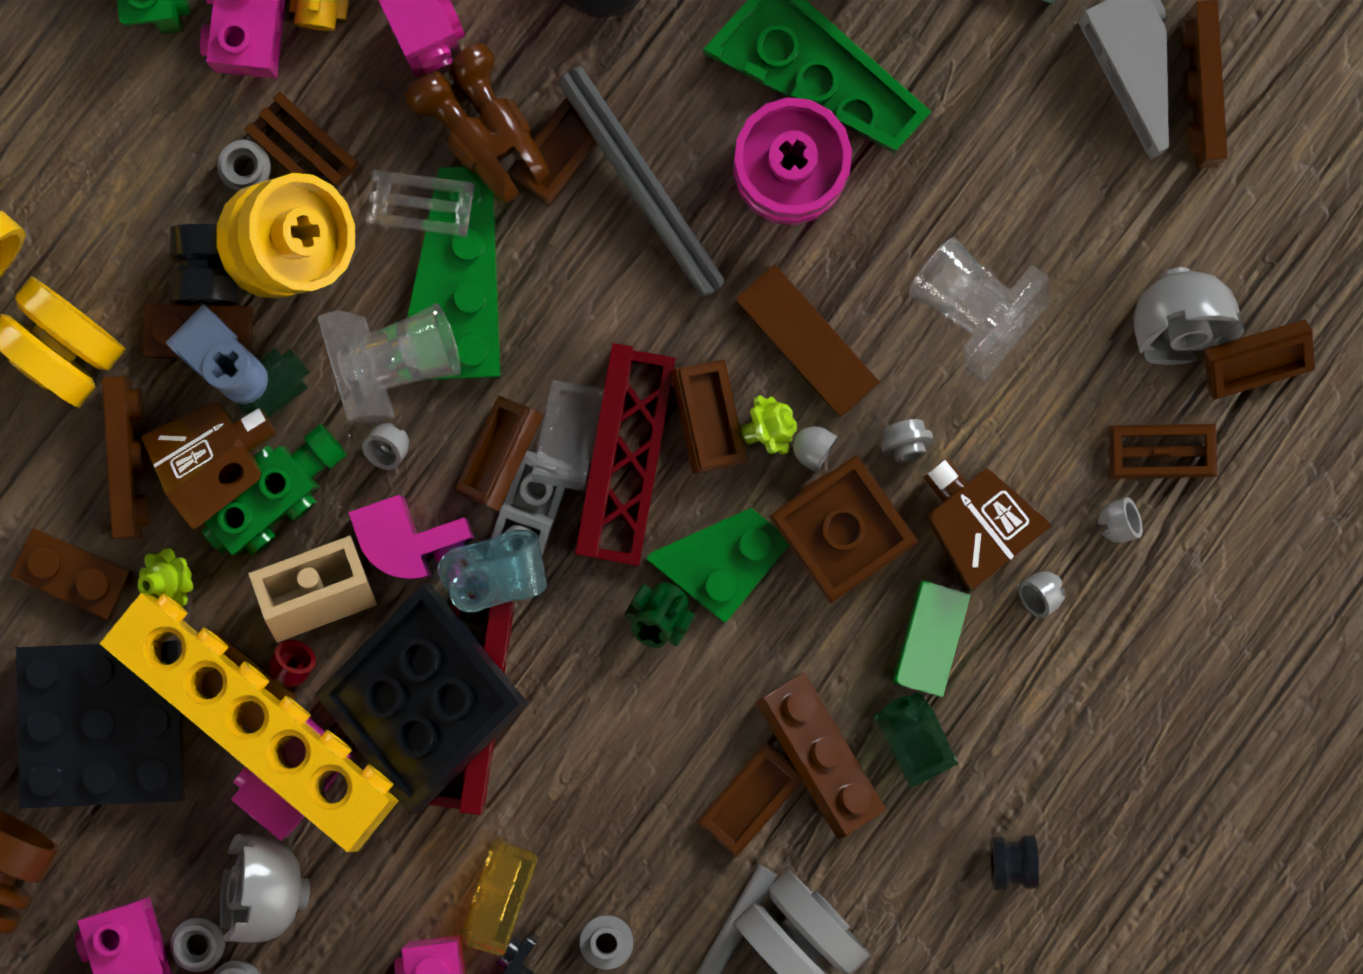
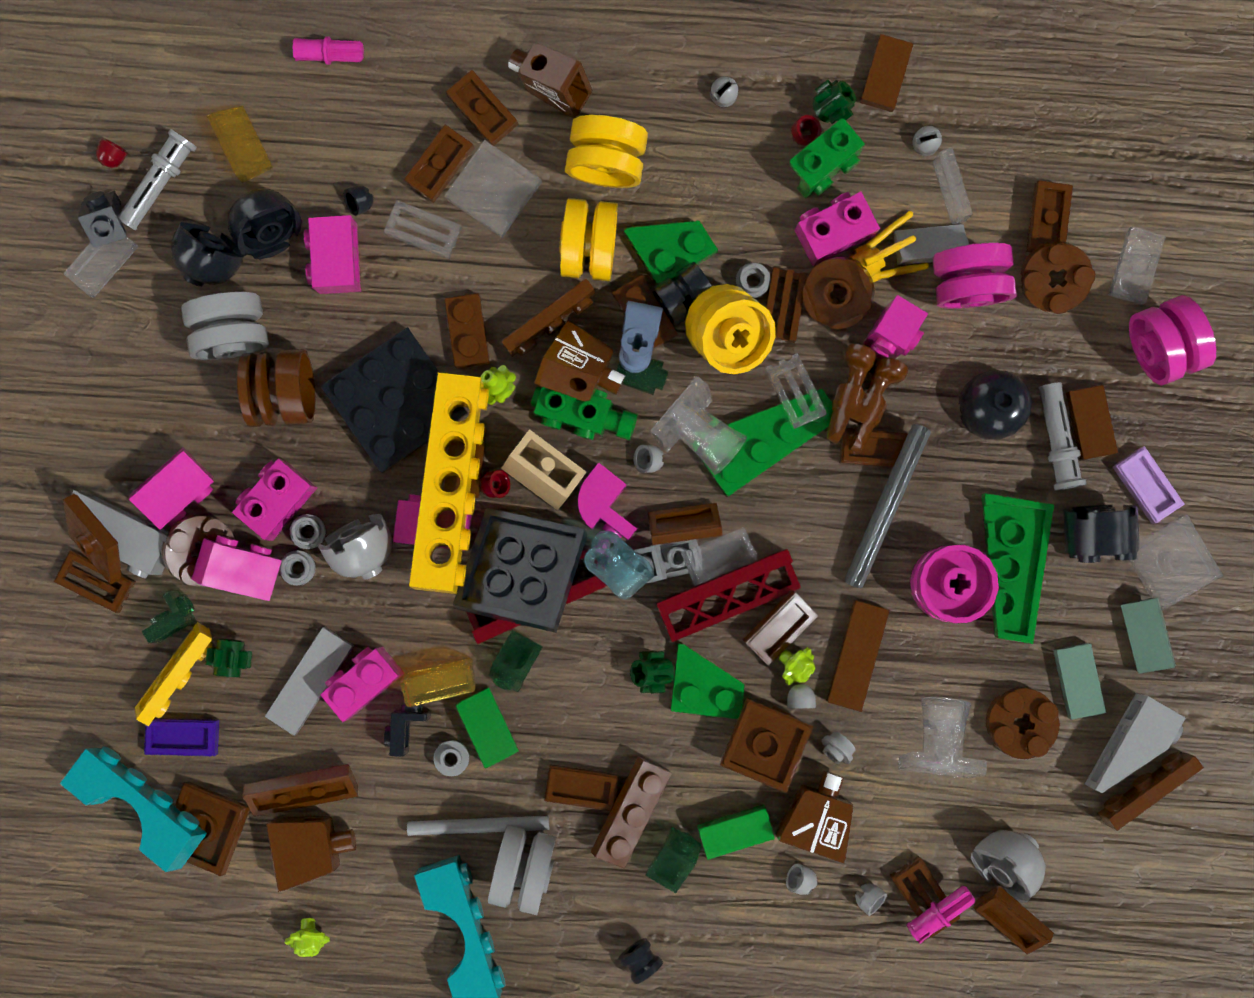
camera: 60 degrees right, 0 degrees up
(133, 244) = (670, 247): none -> green wing
(304, 84) = (848, 274): none -> reddish brown plate
(535, 783) = (514, 662): none -> clear green bracket
(596, 871) = (487, 727): none -> green slope
(1016, 83) = (1079, 681): none -> sand green tile
(1054, 187) = (1041, 714): none -> reddish brown plate
(1192, 446) = (940, 914): none -> dark pink axle

